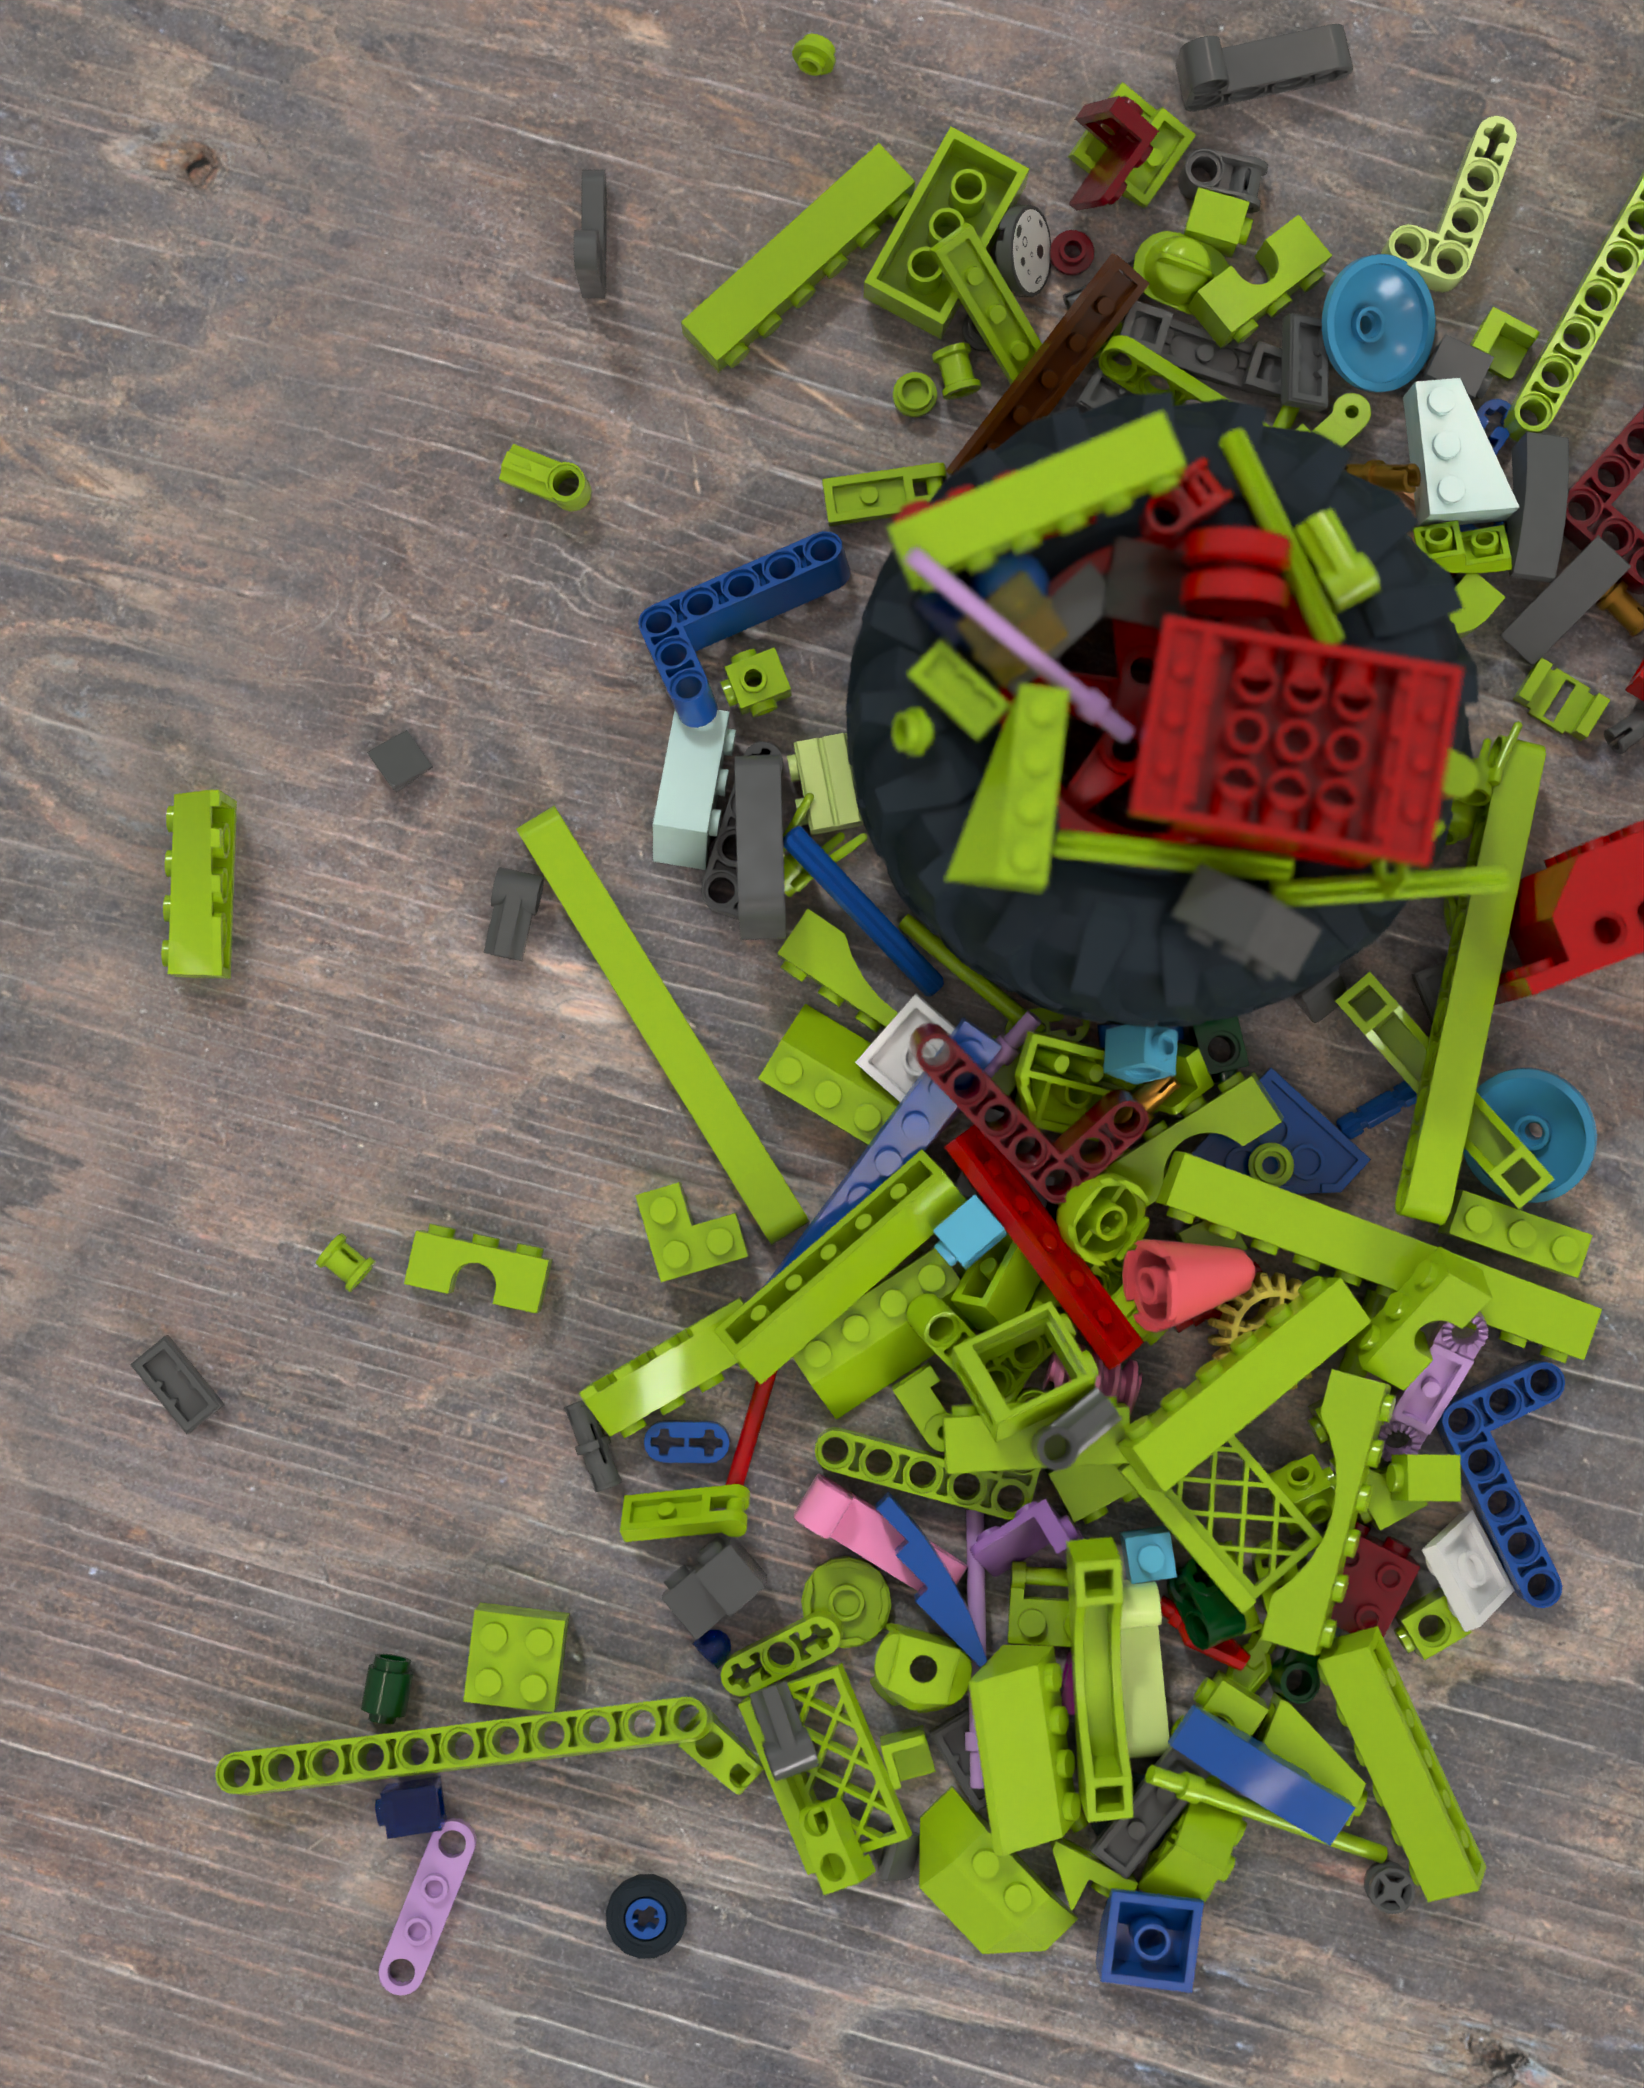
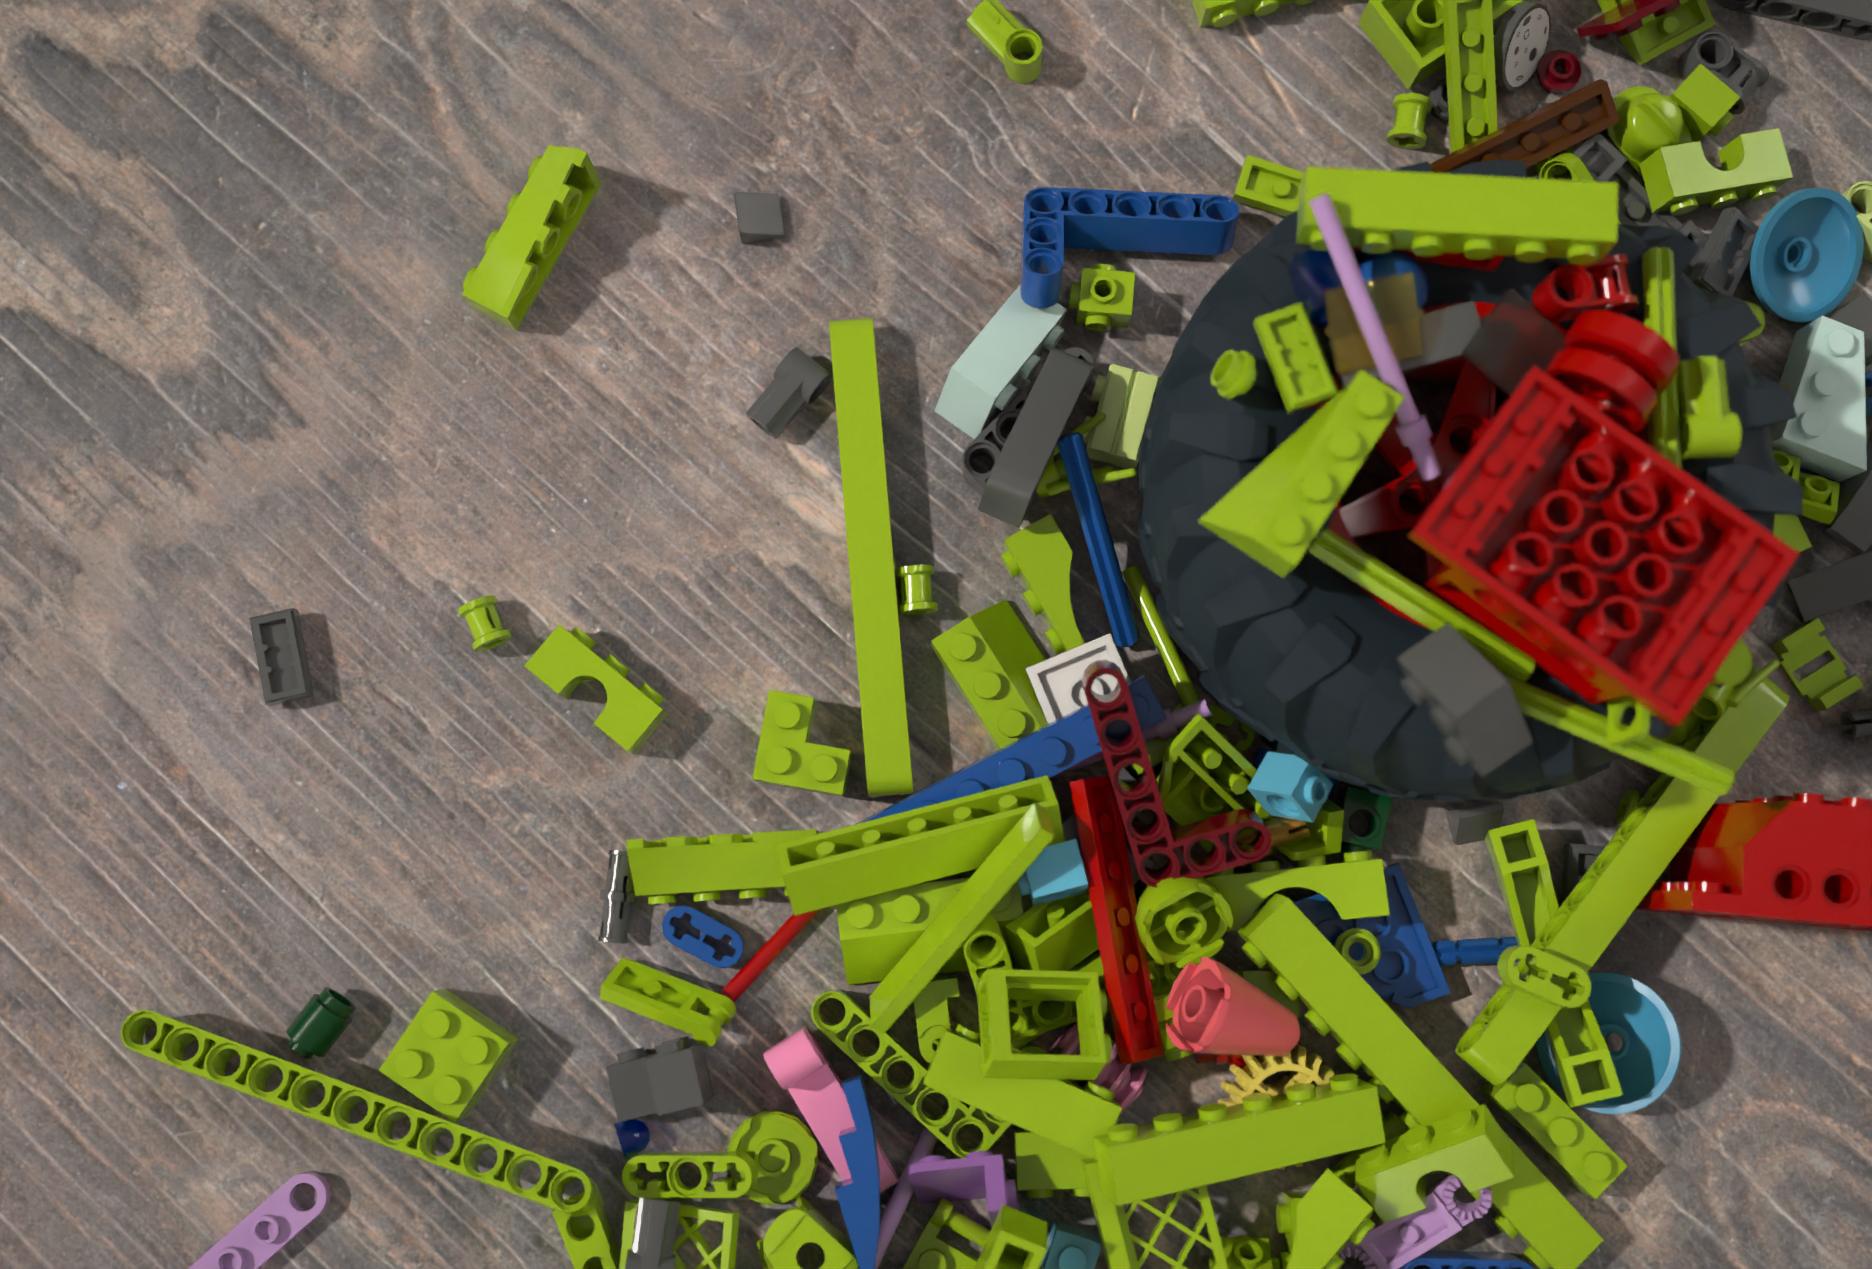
camera: 25 degrees right, 5 degrees down
(411, 1807) = (284, 1144): clear blue brick -> none
(720, 1036) = (916, 590): none -> lime bush
(907, 1313) = (961, 917): none -> lime tile
(914, 394) = (1362, 124): lime plate -> none
(1078, 1426) = (1066, 1101): dark grey piece -> none
(1438, 1100) = (1547, 967): none -> lime beam

